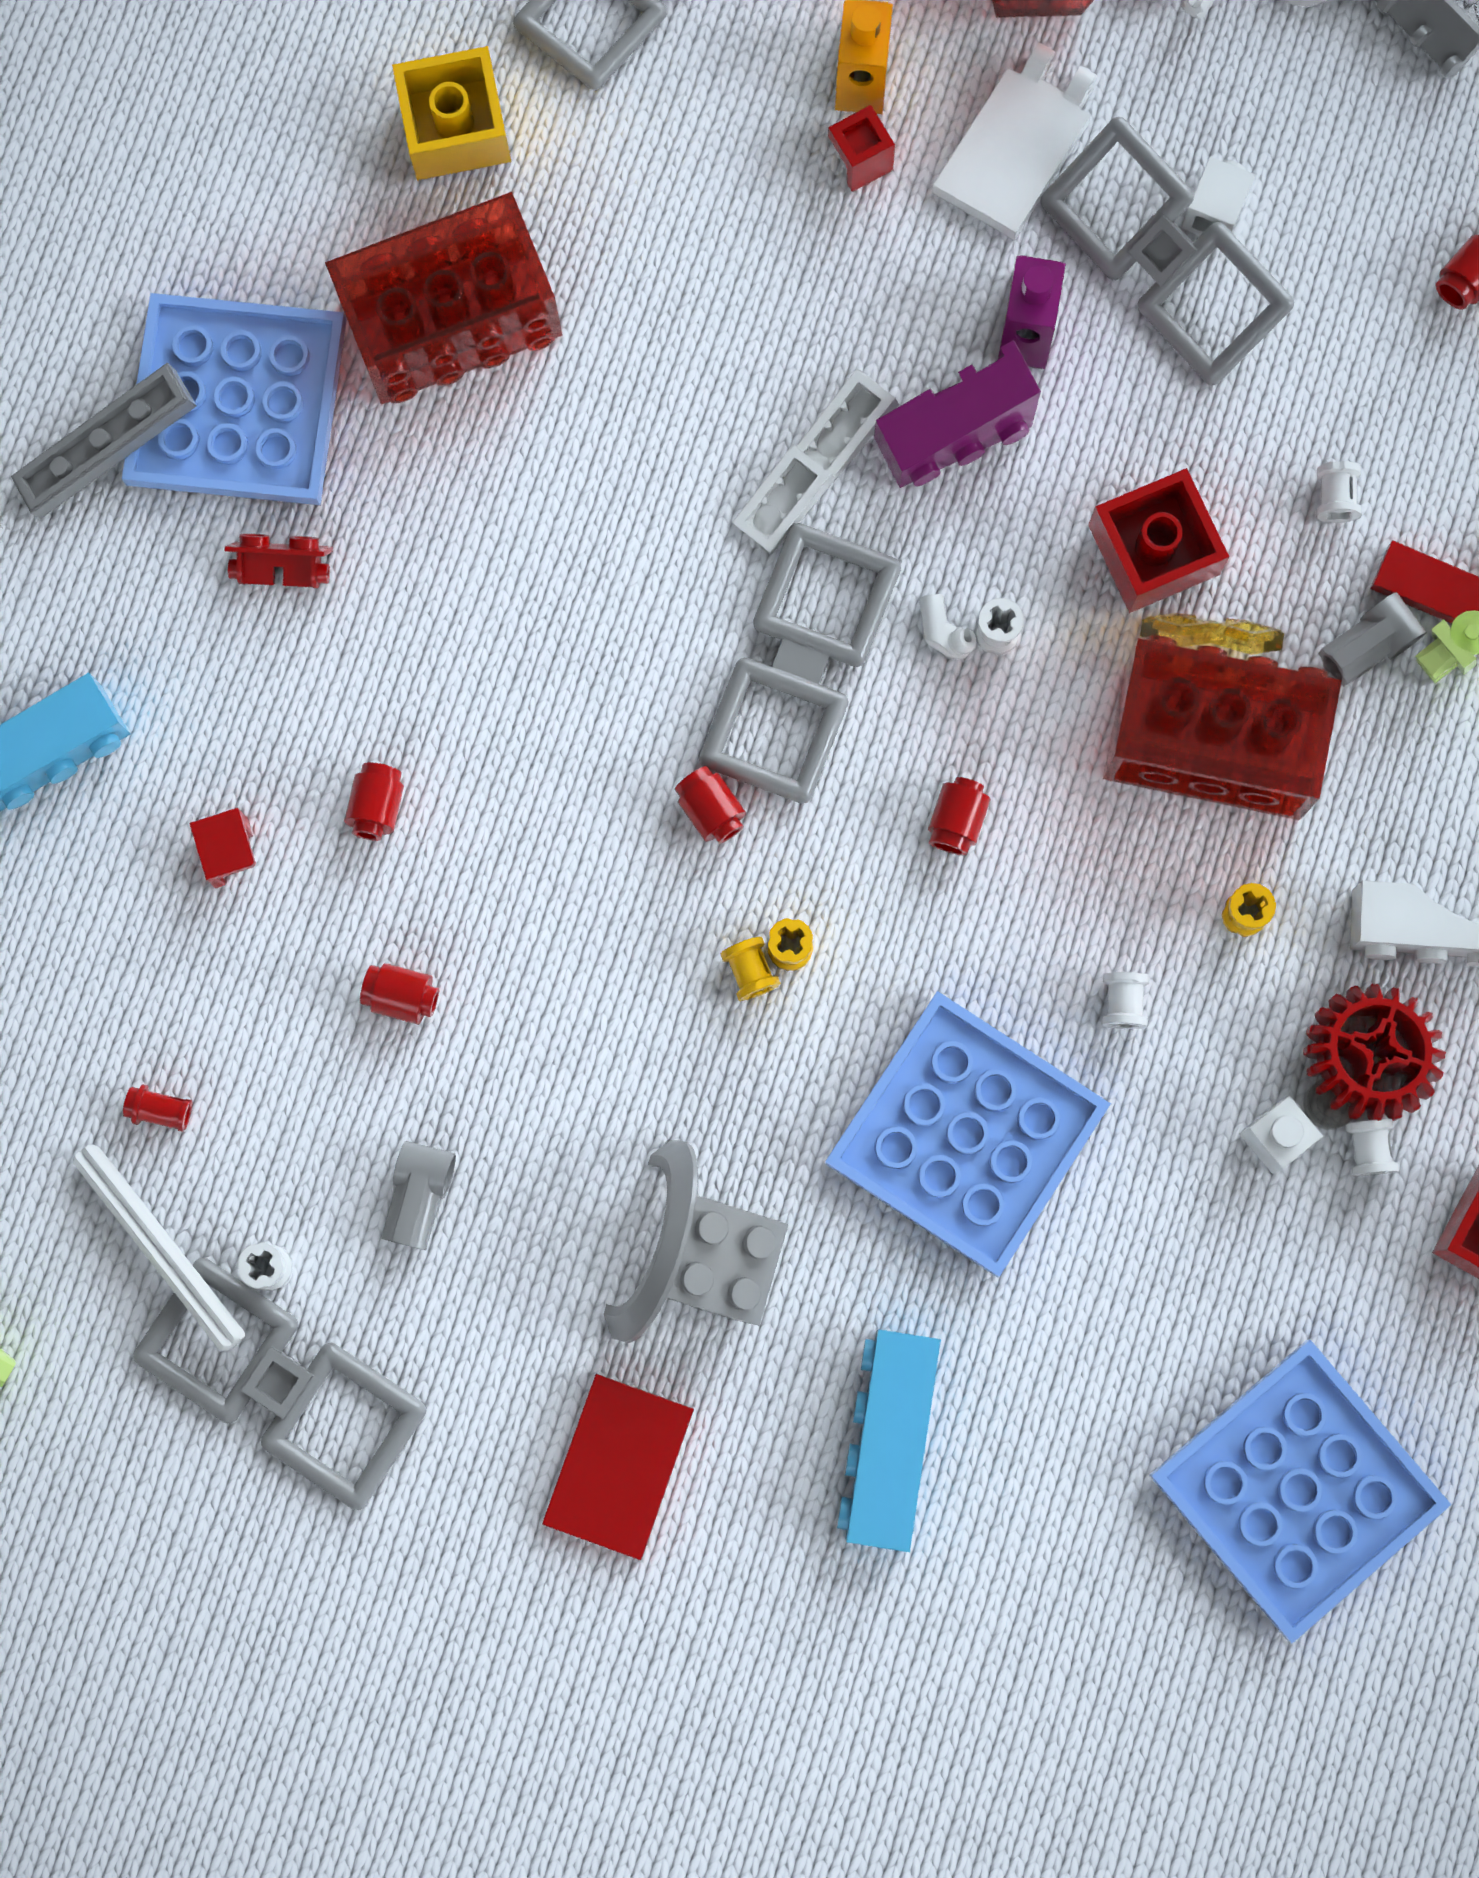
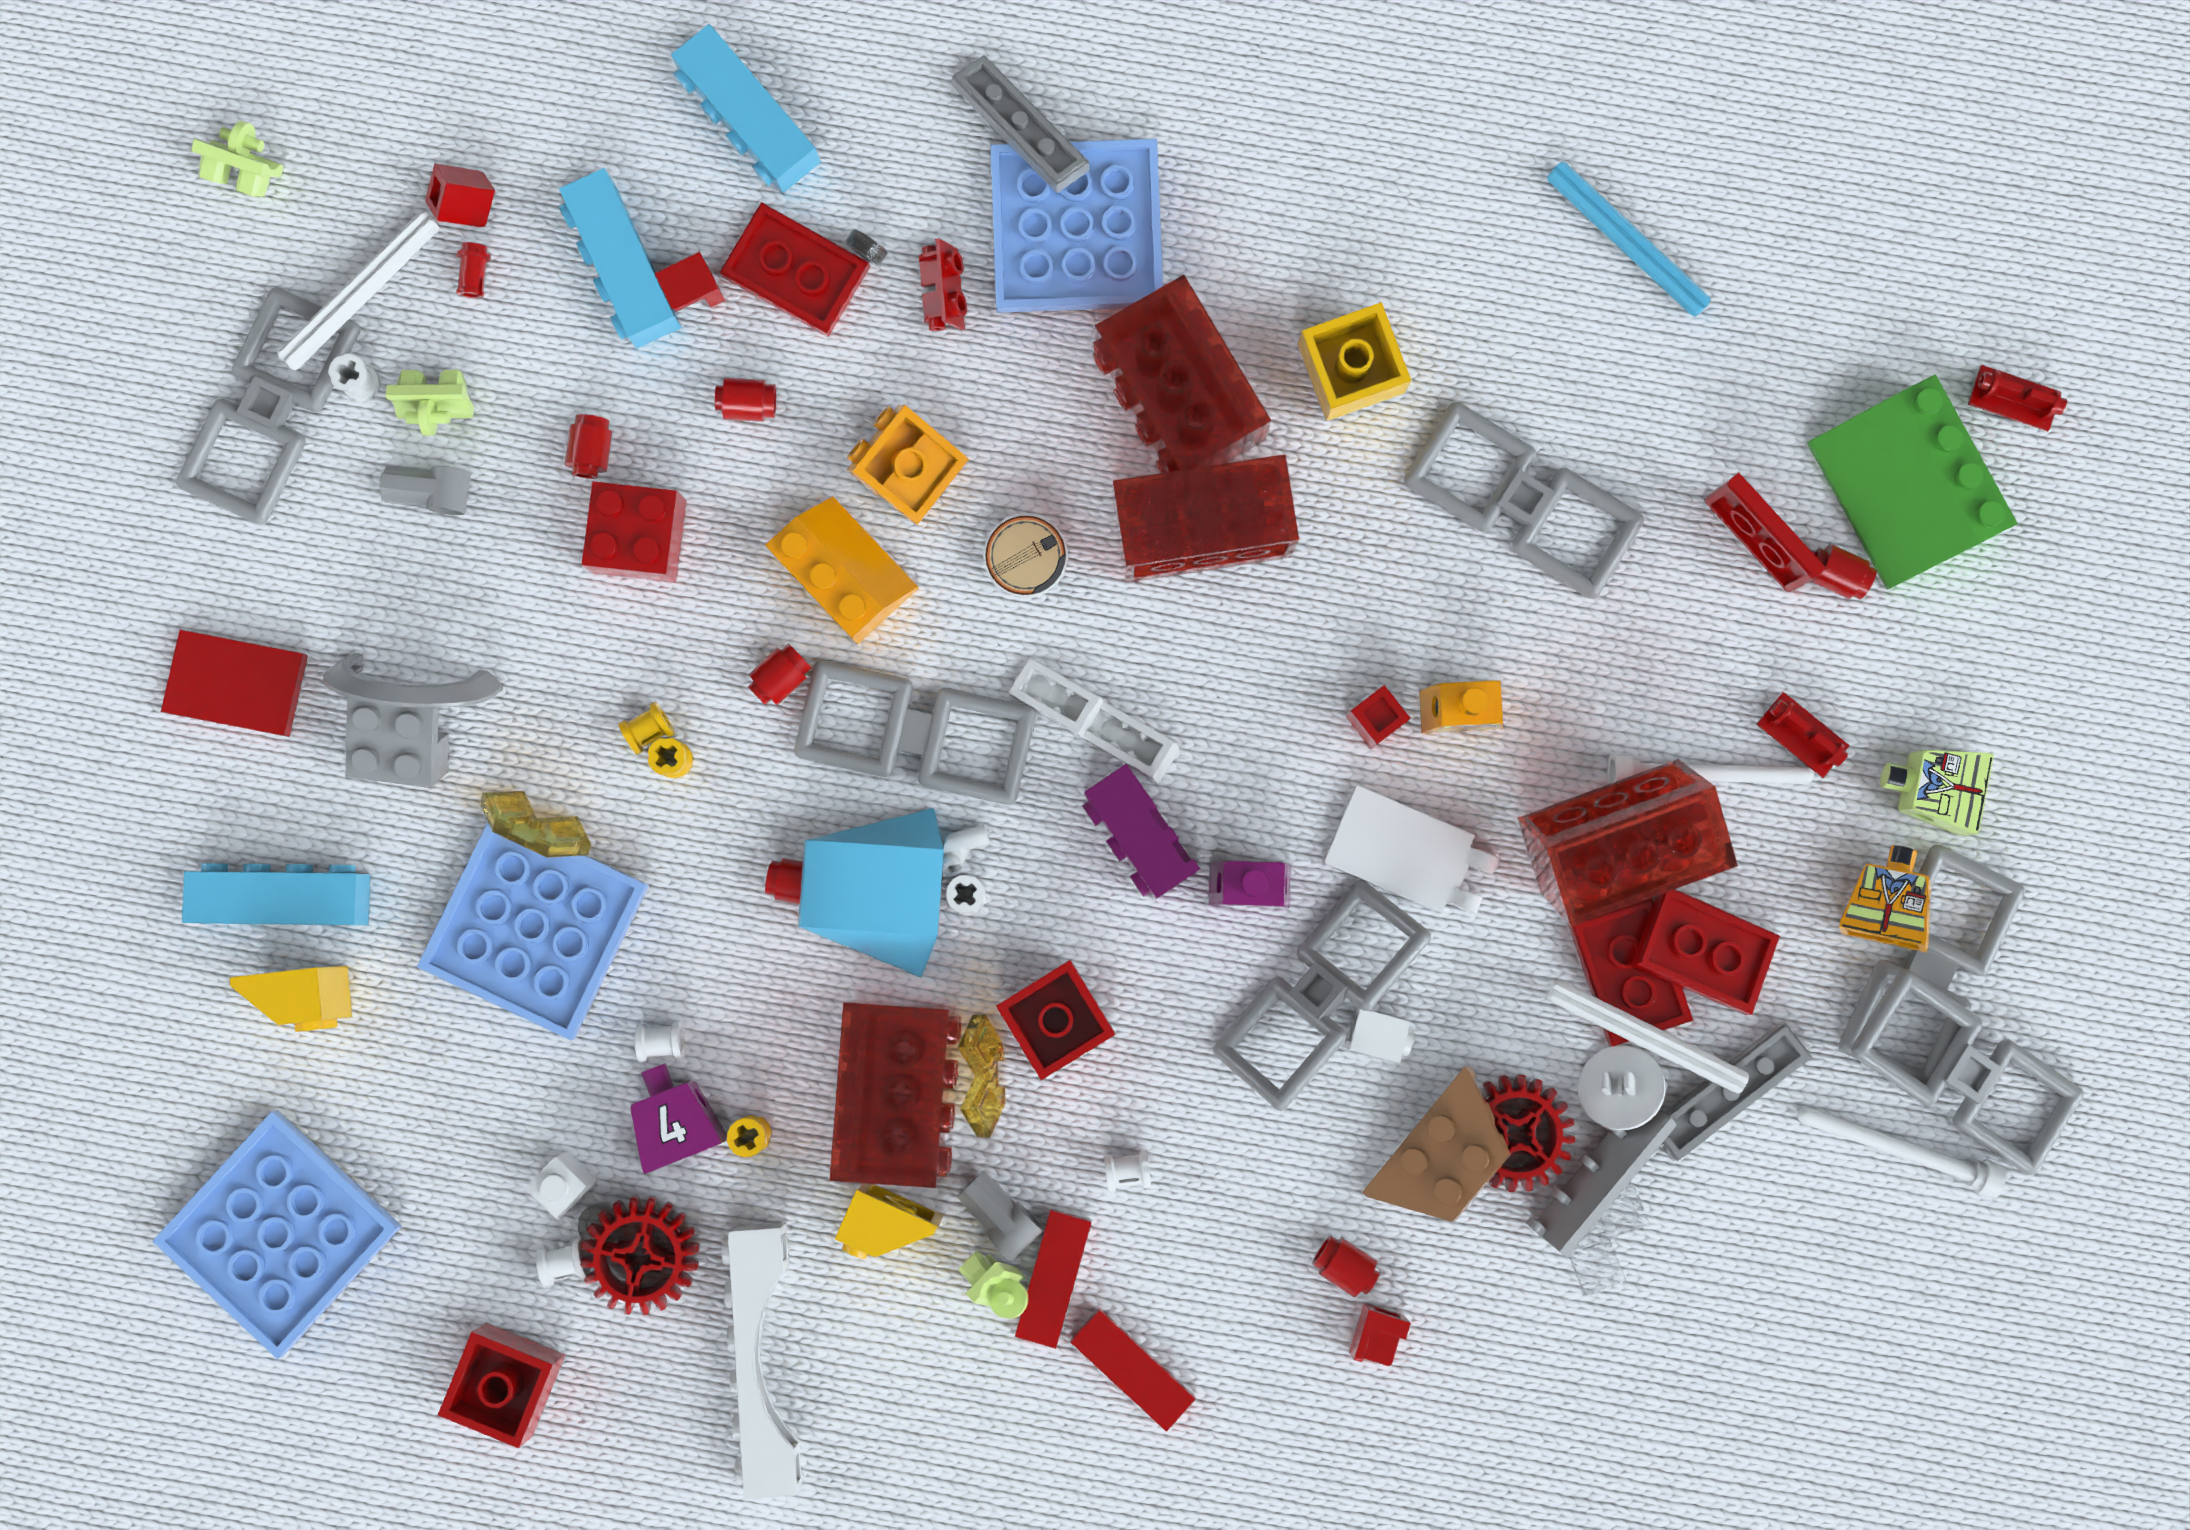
camera: 80 degrees right, 5 degrees up
(62, 1110) = (459, 195): none -> red panel
(176, 927) = (619, 258): none -> medium azure brick
(216, 638) = (866, 247): none -> clear smoke tile
(226, 729) = (794, 269): none -> red tile
(313, 1178) = (430, 403): none -> yellowish green hips
(481, 626) = (906, 462): none -> light orange plate
(513, 949) = (634, 532): none -> red brick
(597, 718) = (842, 567): none -> light orange slope
(607, 292) = (1205, 518): none -> clear red brick
(614, 505) = (1025, 555): none -> piece
(865, 1091) = (514, 819): none -> clear yellow tile
(980, 717) = (877, 889): none -> medium azure wedge
(1017, 1417) = (299, 997): none -> yellow slope
(1222, 996) = (673, 1121): none -> magenta torso
(1345, 46) = (1529, 1118): none -> red gear
(1364, 142) = (1445, 1155): none -> medium nougat wing
(1372, 761) = (883, 1222): none -> yellow slope

